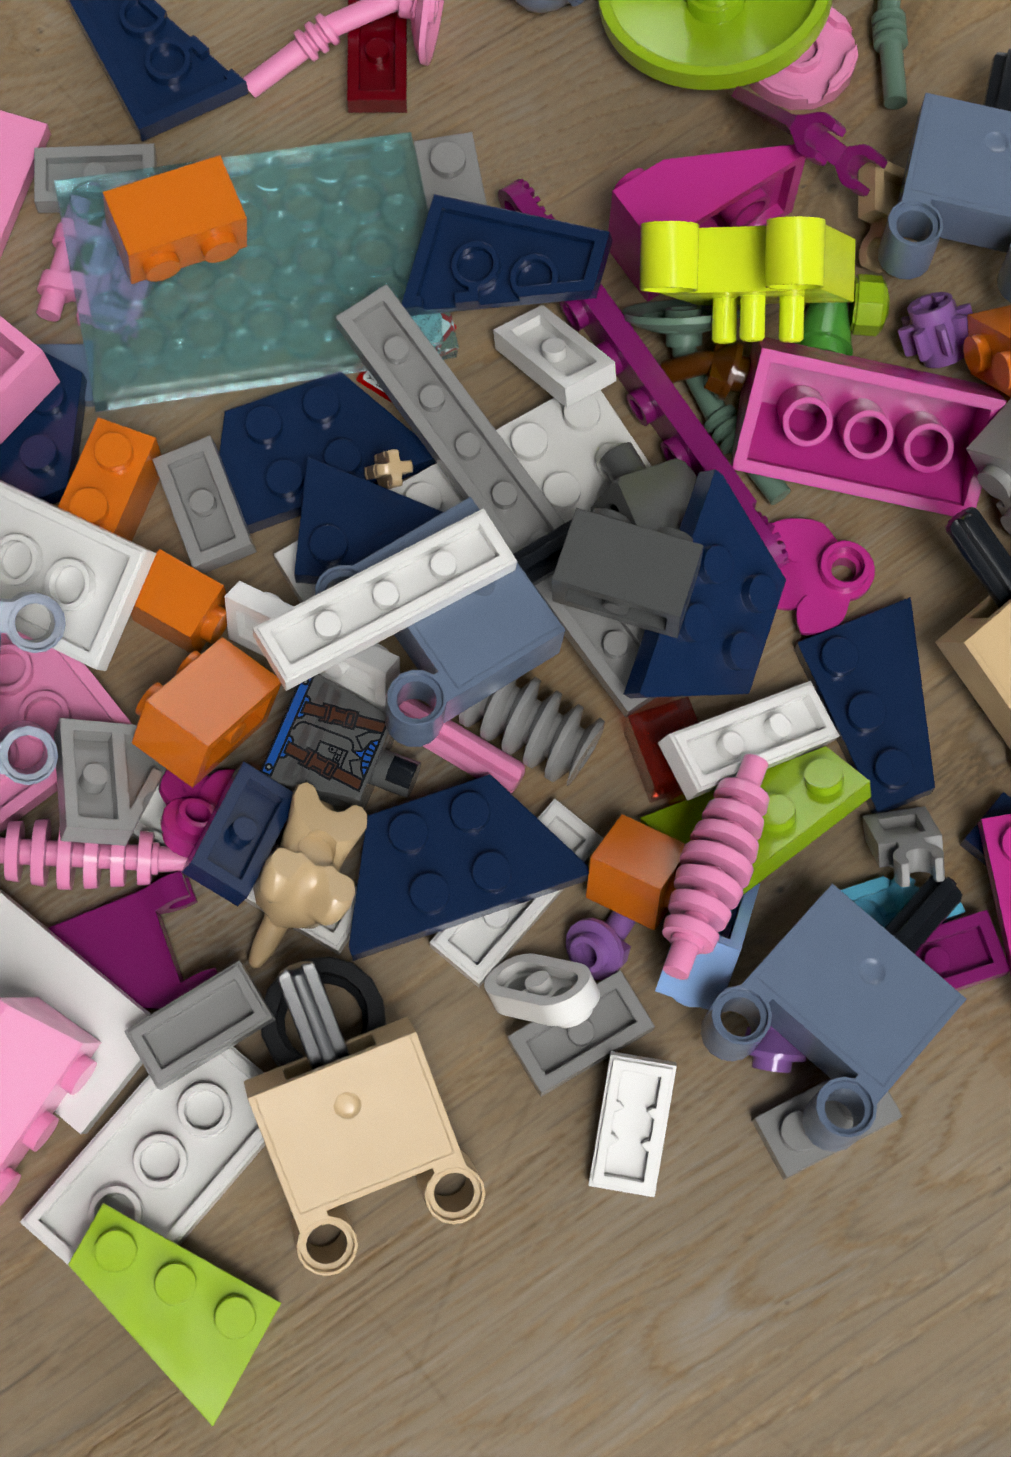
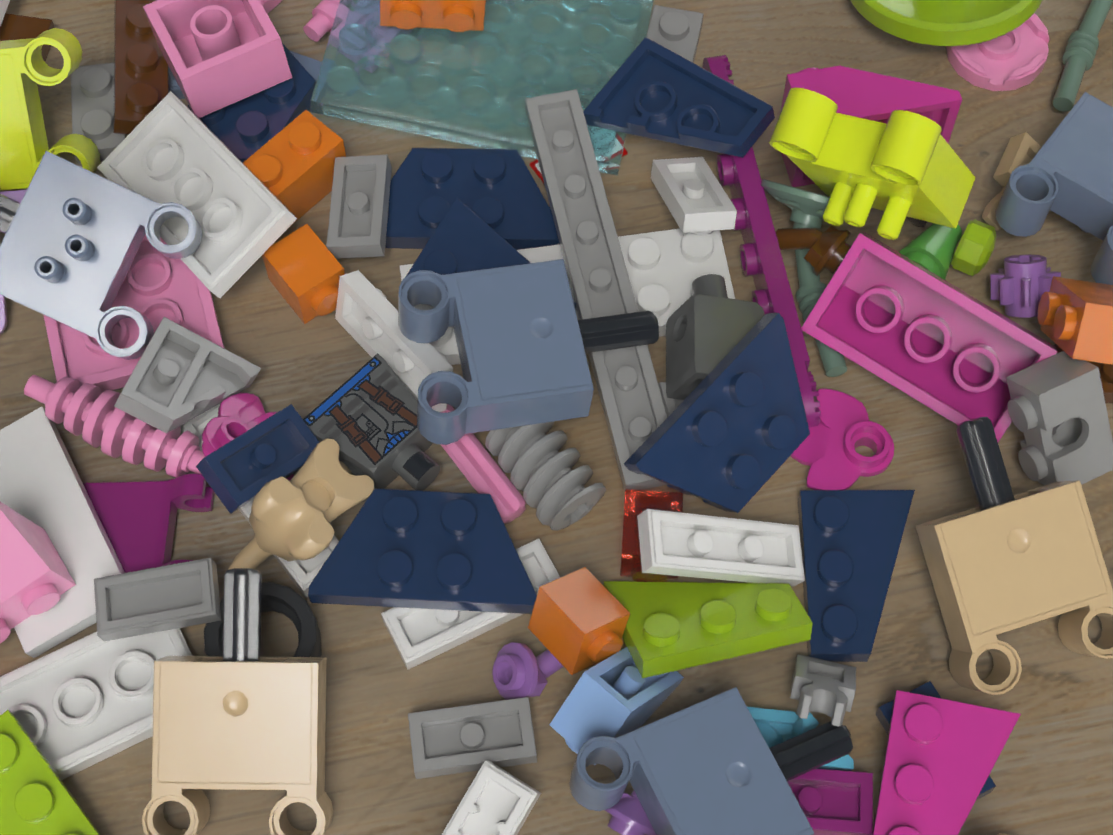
camera: 25 degrees right, 10 degrees down
(204, 710) = (283, 358): orange brick -> none
(384, 599) = (453, 307): white tile -> none
(388, 469) = (516, 228): tan piece -> none
(543, 990) = (453, 686): white plate -> none
(627, 571) = (664, 360): dark grey brick -> none
(715, 866) = (638, 632): bright pink piece -> none
(814, 141) = (968, 87): magenta flag -> none

